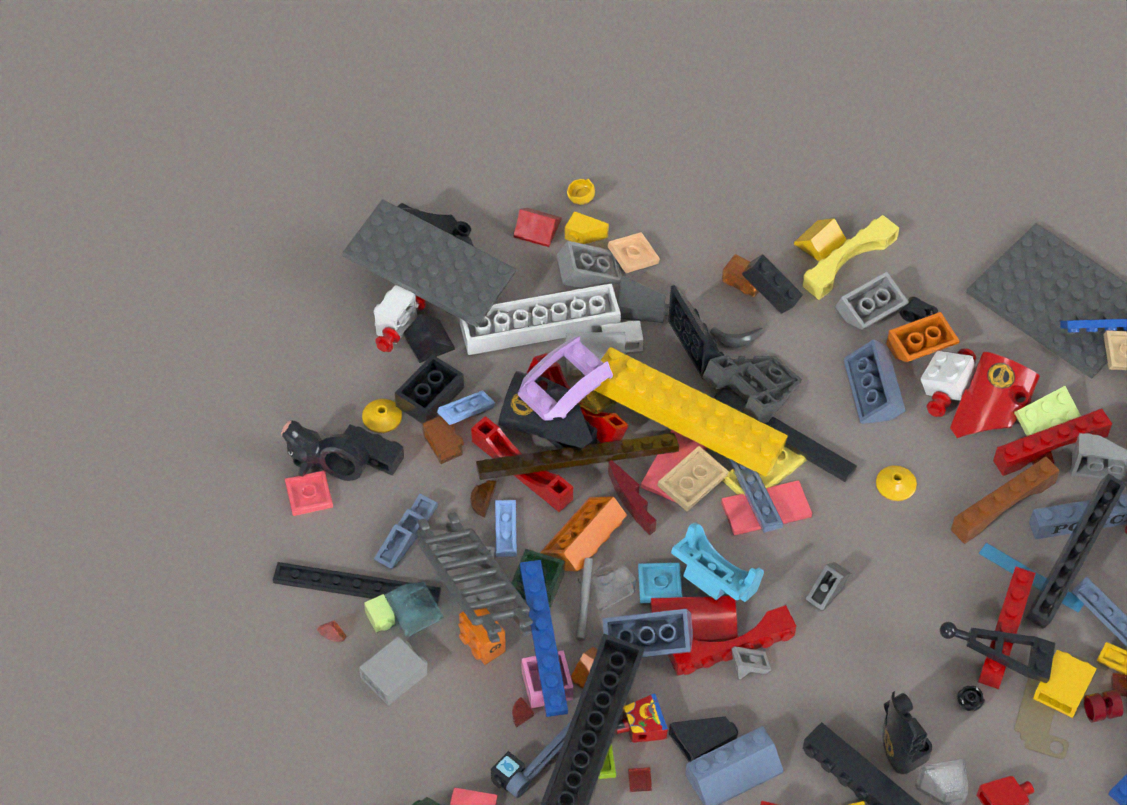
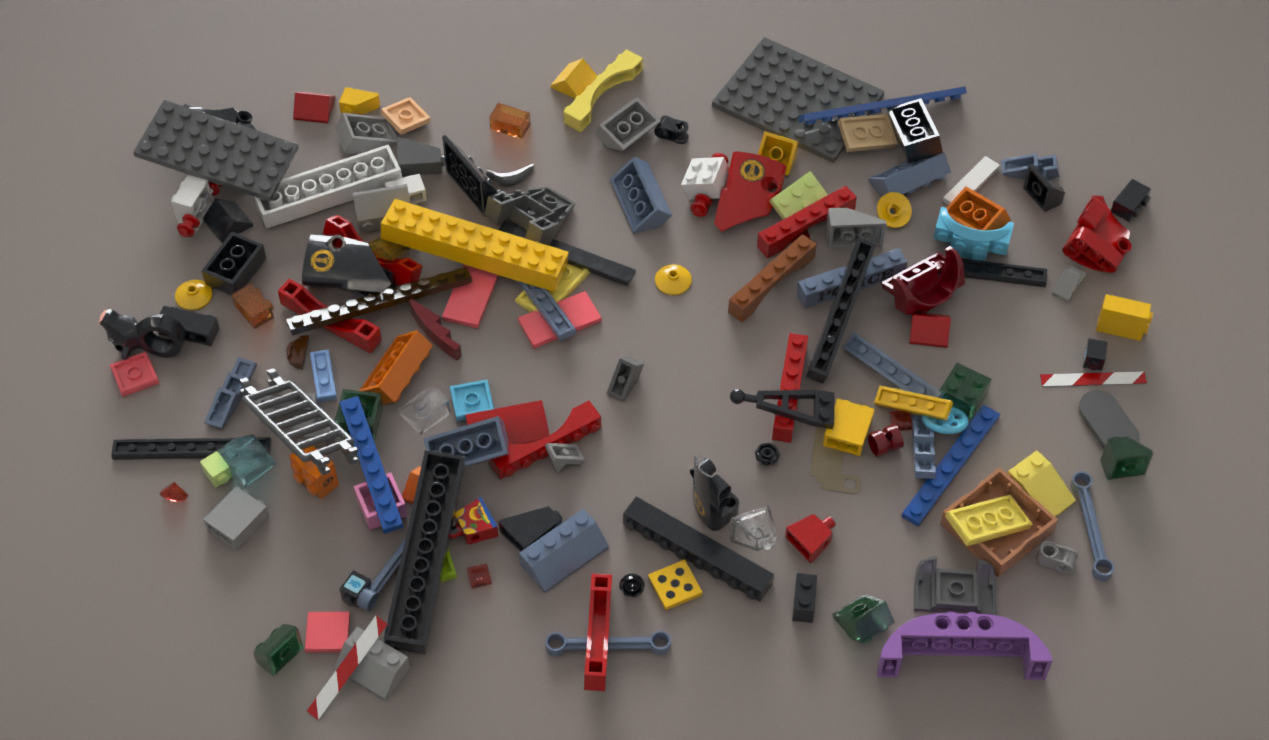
camera: 10 degrees left, 0 degrees up
(466, 407) = (270, 274): light blue tile -> none
(521, 712) = (361, 535): clear red tile -> none
(581, 191) = (349, 69): yellow hair -> none
(581, 357) = (371, 212): lavender wedge -> none
(584, 600) = (404, 425): light grey bar -> none
(692, 478) = (488, 304): tan plate -> none
(711, 570) = (517, 381): medium azure piece -> none
(772, 284) = (535, 123): black brick -> none
(921, 338) = (676, 149): orange slope -> none
(1009, 564) = (783, 333): dark azure sticker -> none
(1033, 355) = (779, 149): none -> yellow slope

